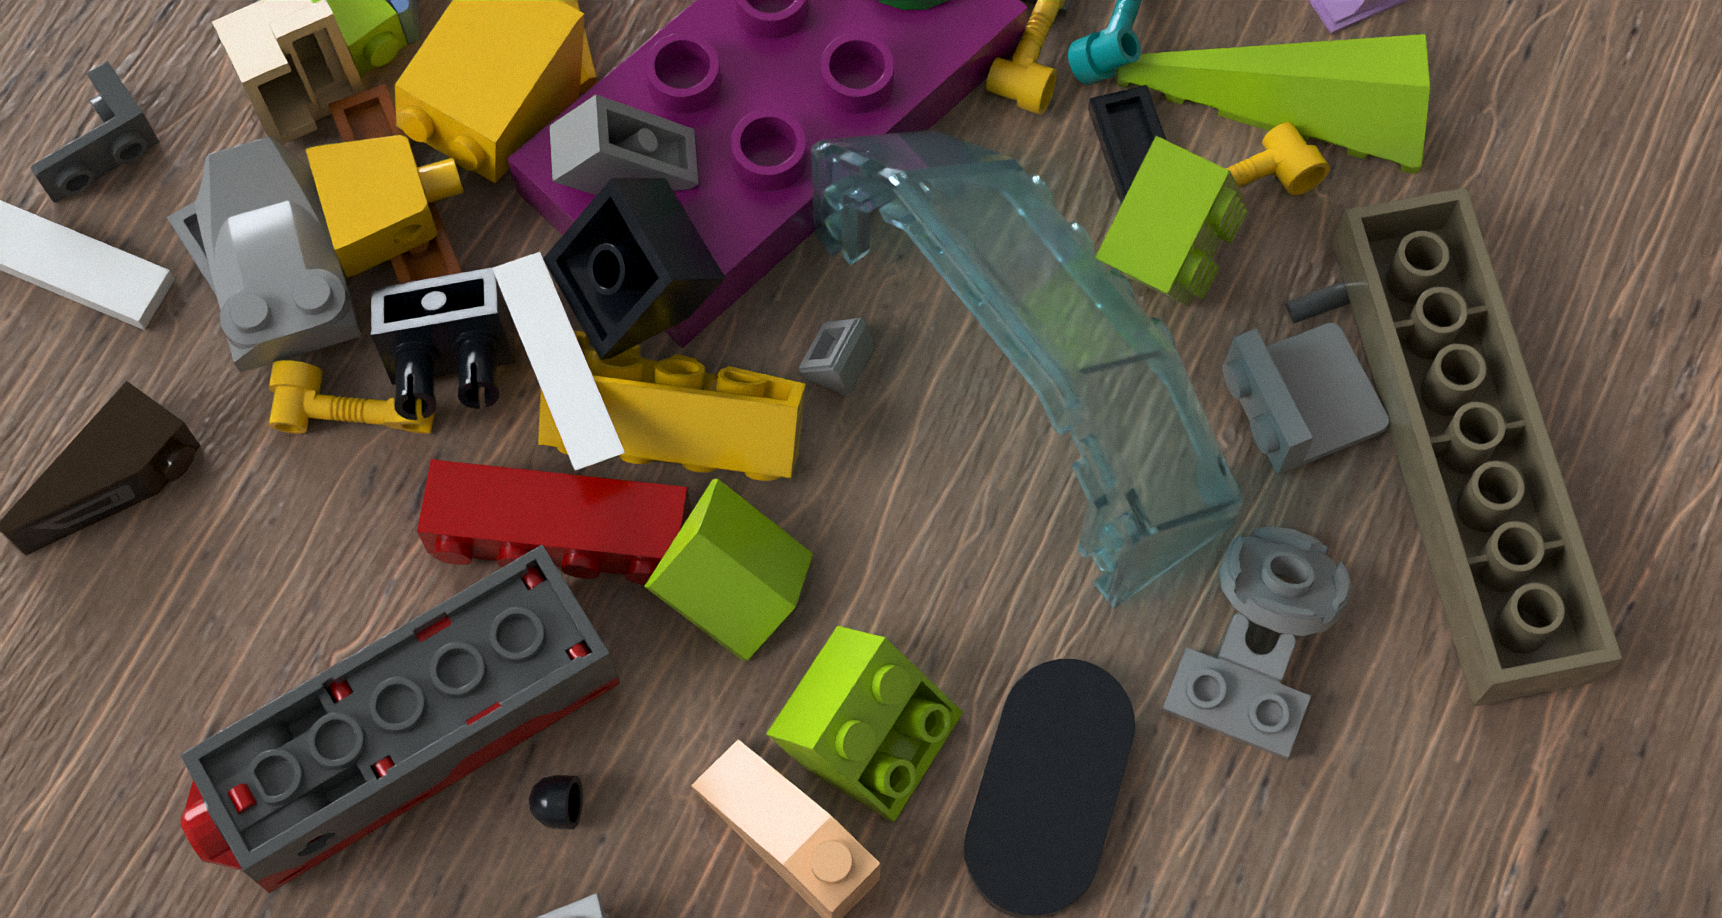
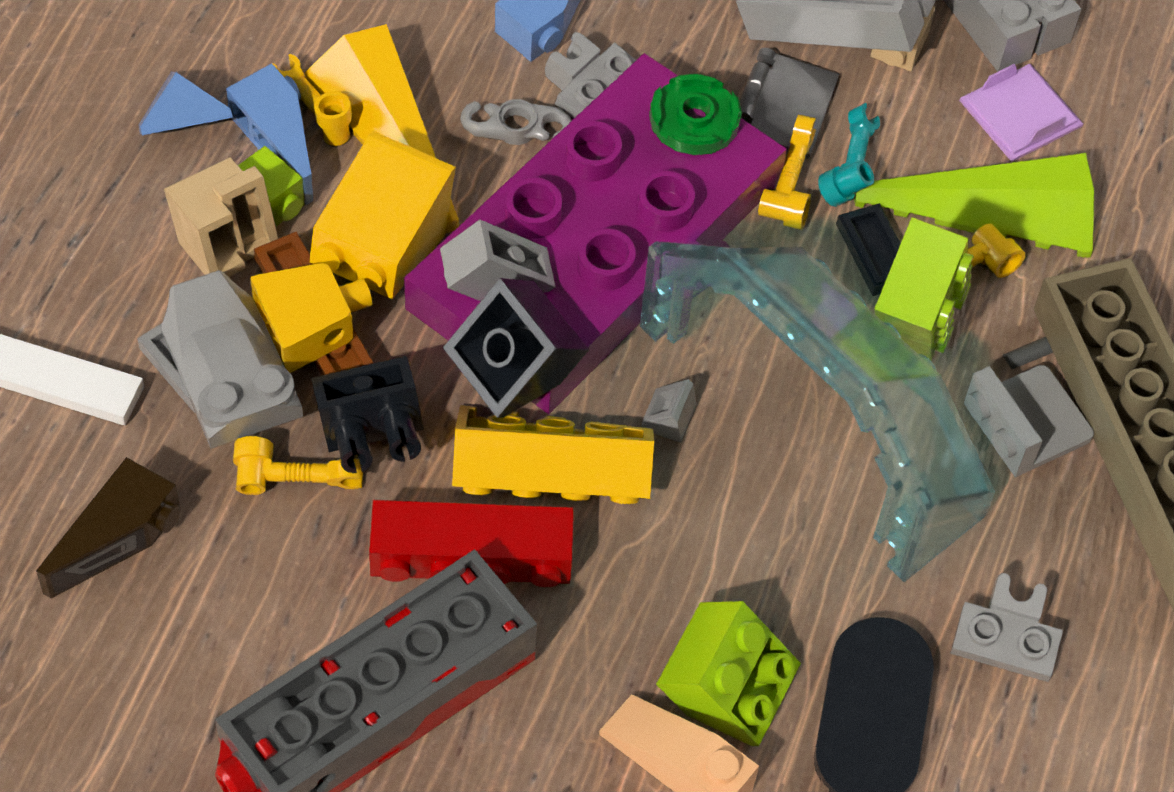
camera: 10 degrees left, 10 degrees down
(116, 142) = (91, 283): dark grey bracket -> none
(557, 801) = (498, 747): black hinge -> none
(558, 361) = (466, 418): white sticker -> none
(731, 571) = (613, 569): lime slope -> none
(1280, 606) = (1032, 549): light grey tile -> none

